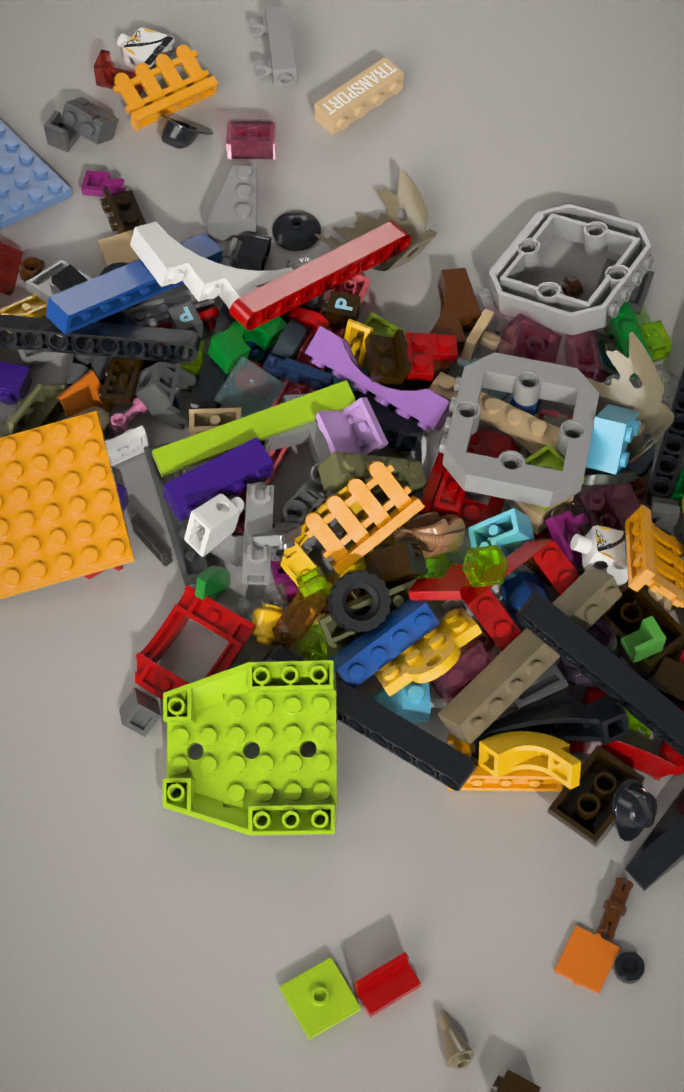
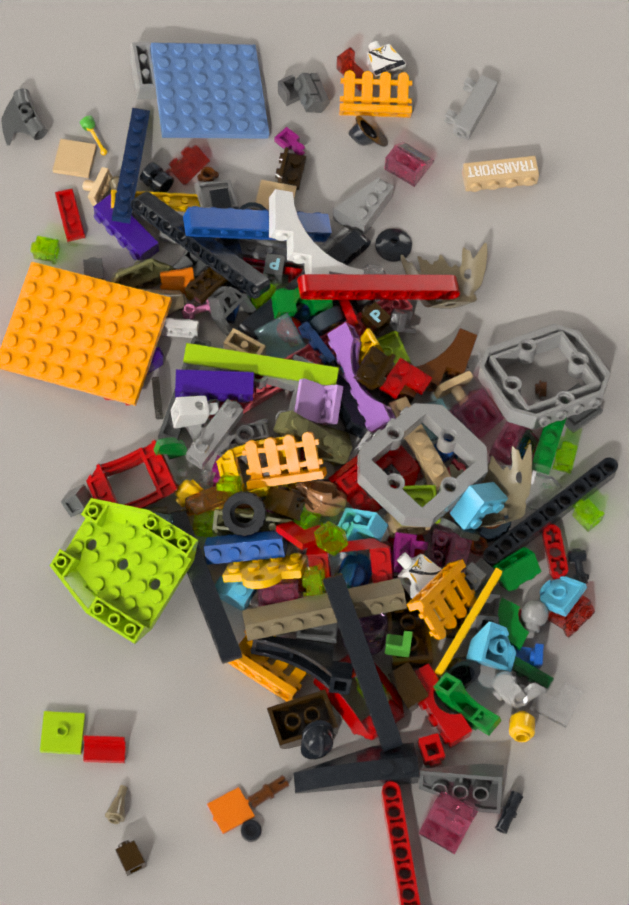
camera: 30 degrees right, 5 degrees up
(280, 537) = (222, 444): dark grey piece -> none
(370, 299) = (401, 321): none -> flat silver panel
(498, 628) = (313, 581): none -> clear neon green brick
(532, 751) = (281, 666): yellow arch -> none

